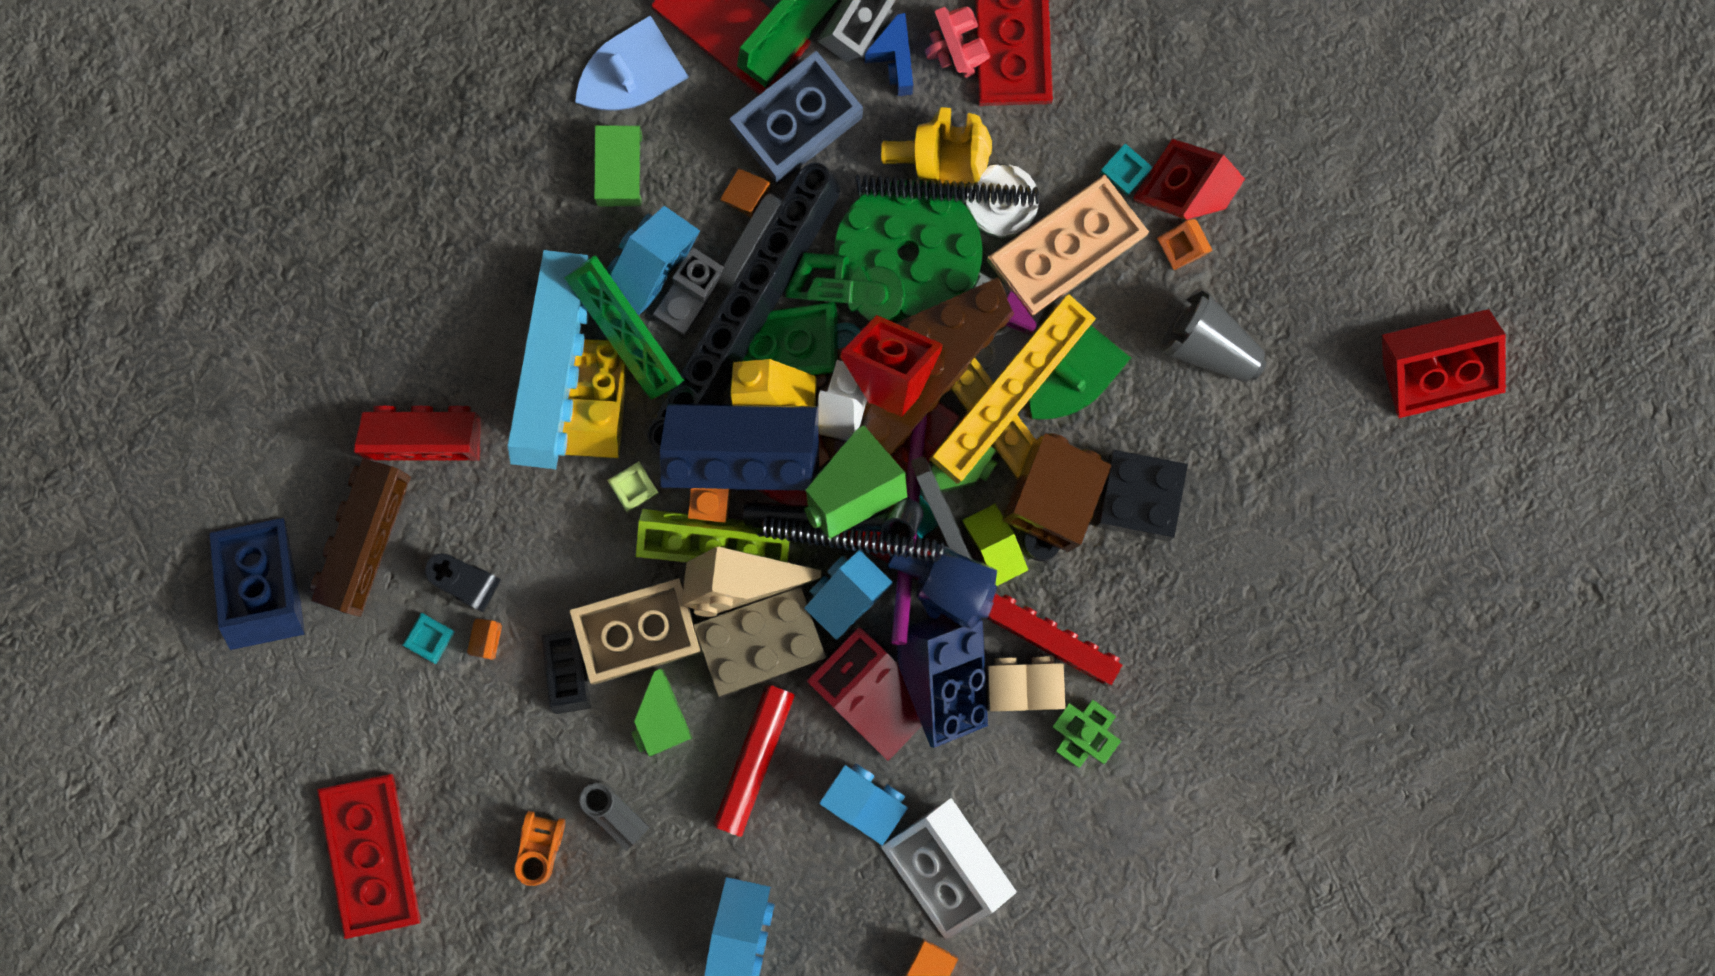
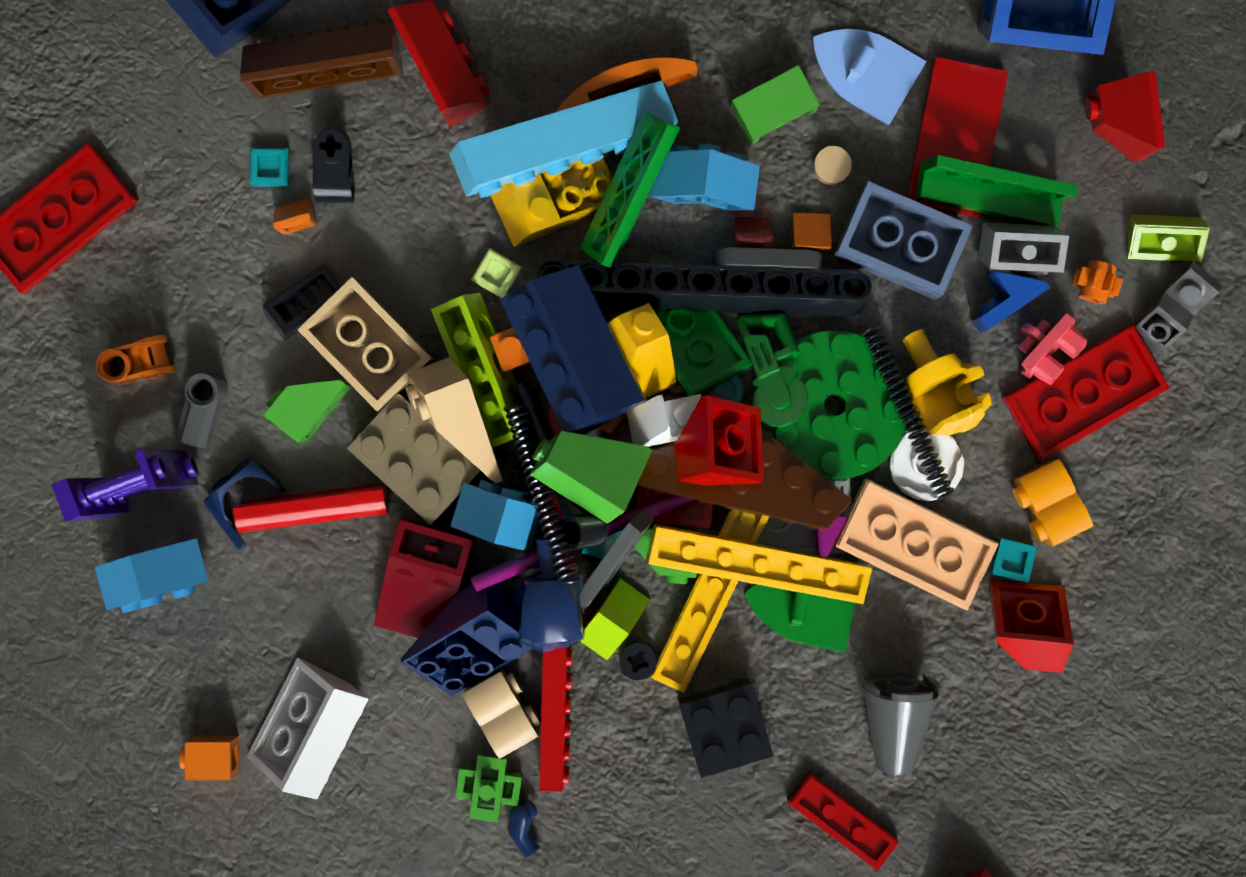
camera: 65 degrees right, 5 degrees up
(536, 240) = (669, 70): none -> orange slope
(645, 936) = (108, 496): none -> dark purple fence
(690, 292) = (694, 230): flat silver slope -> none
(693, 836) = (214, 501): none -> dark blue helmet
(697, 143) = (832, 165): none -> tan tile
(718, 241) = (753, 231): none -> clear red slope
(864, 804) = (322, 623): dark azure brick -> none
(1057, 491) = (687, 652): reddish brown brick -> none
(1093, 110) = (1052, 503): none -> light orange brick
(1134, 725) = (519, 826): none -> dark blue arm
(1184, 243) = (973, 647): orange slope -> none
(1278, 437) = (843, 821): none -> red tile

